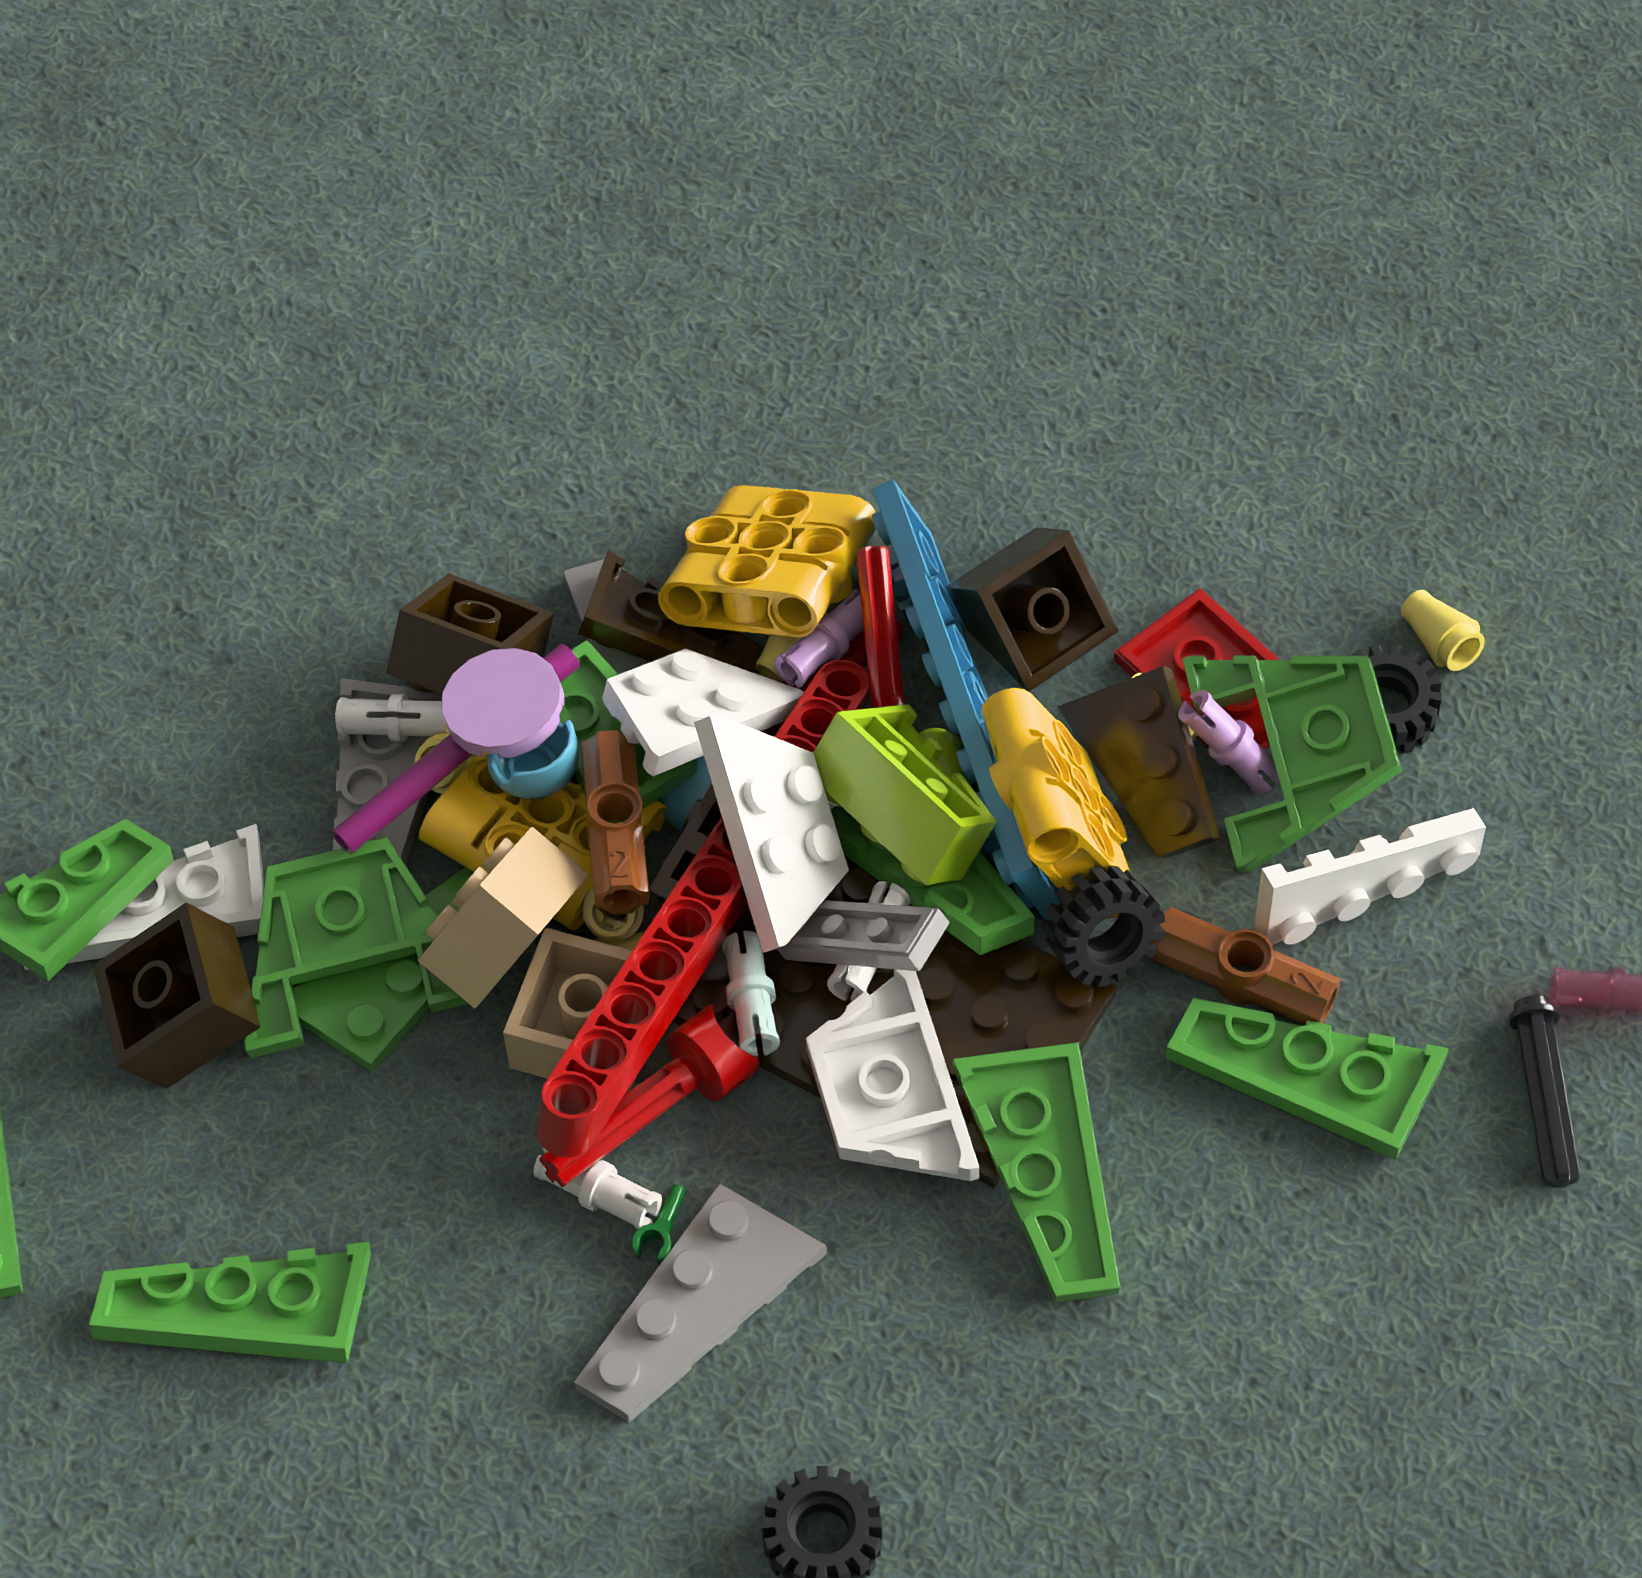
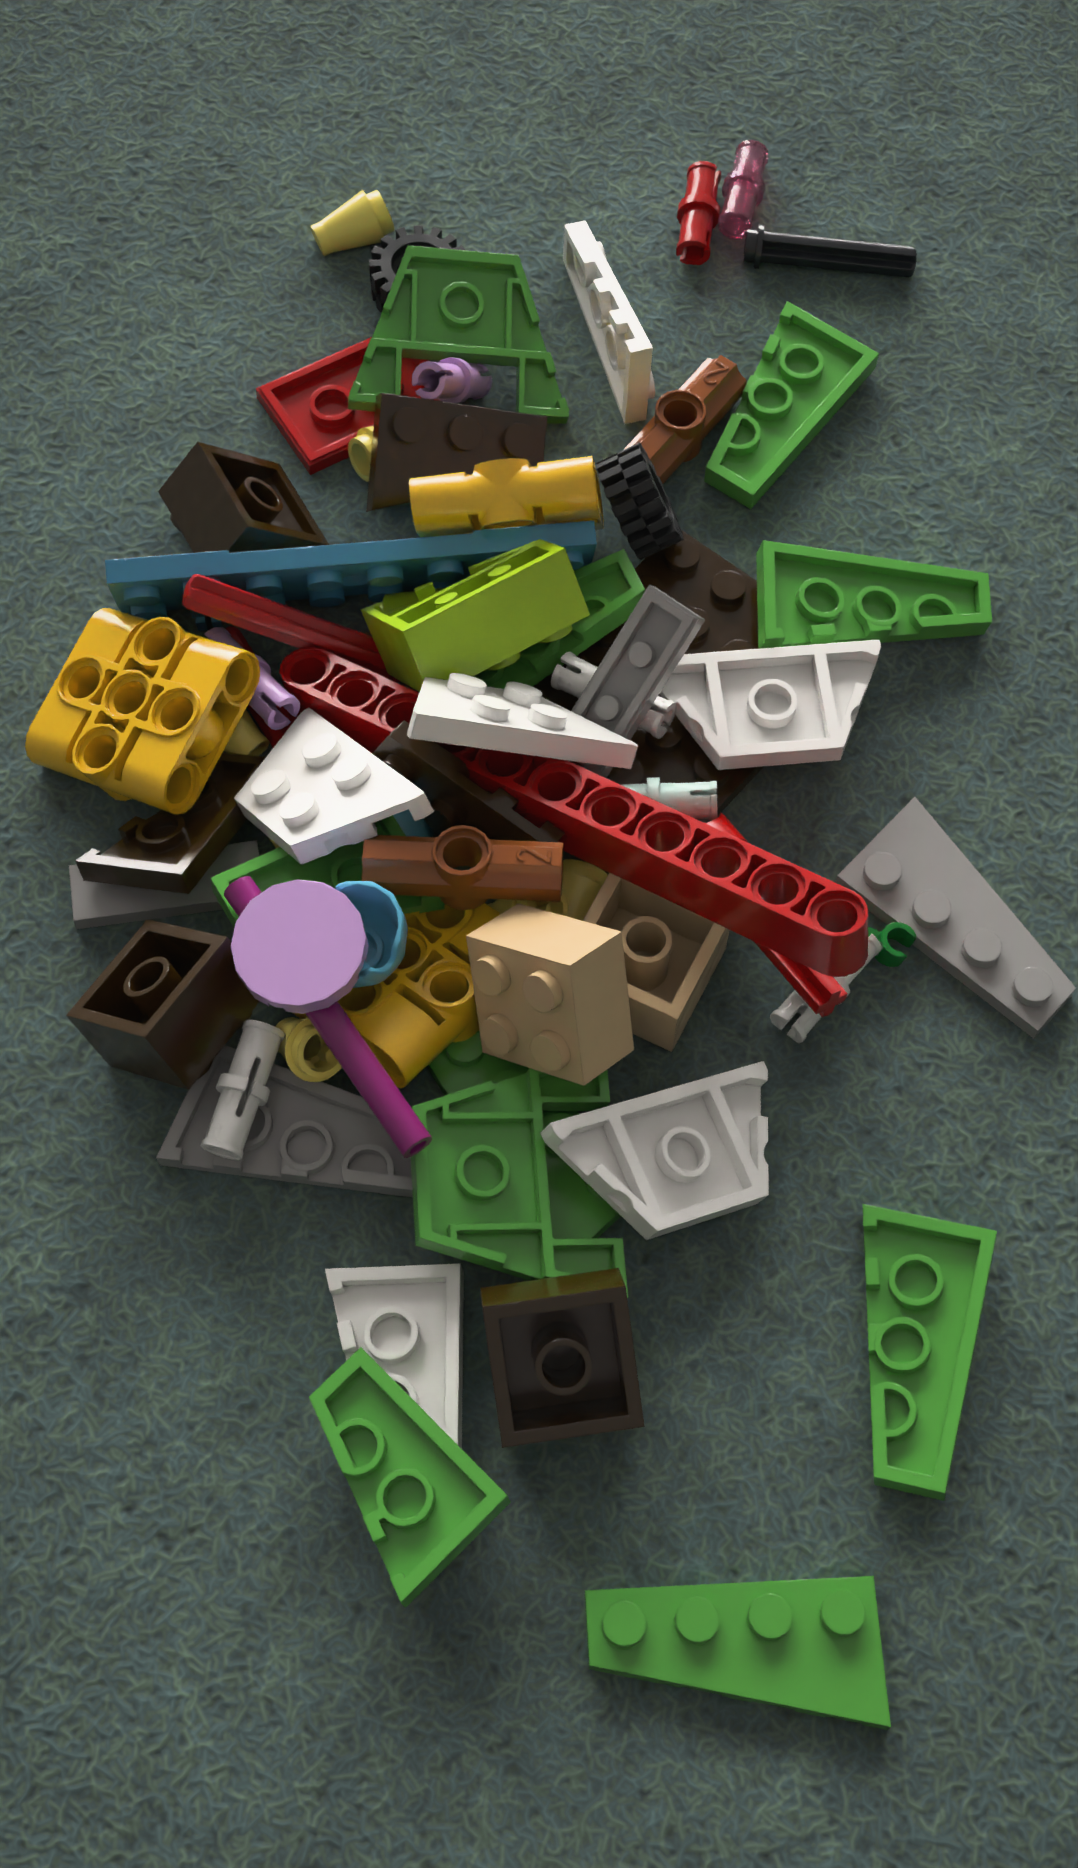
camera: 85 degrees left, 5 degrees up
(393, 1072) = (674, 1151): none -> white wing
(1563, 950) = (698, 213): none -> red pin

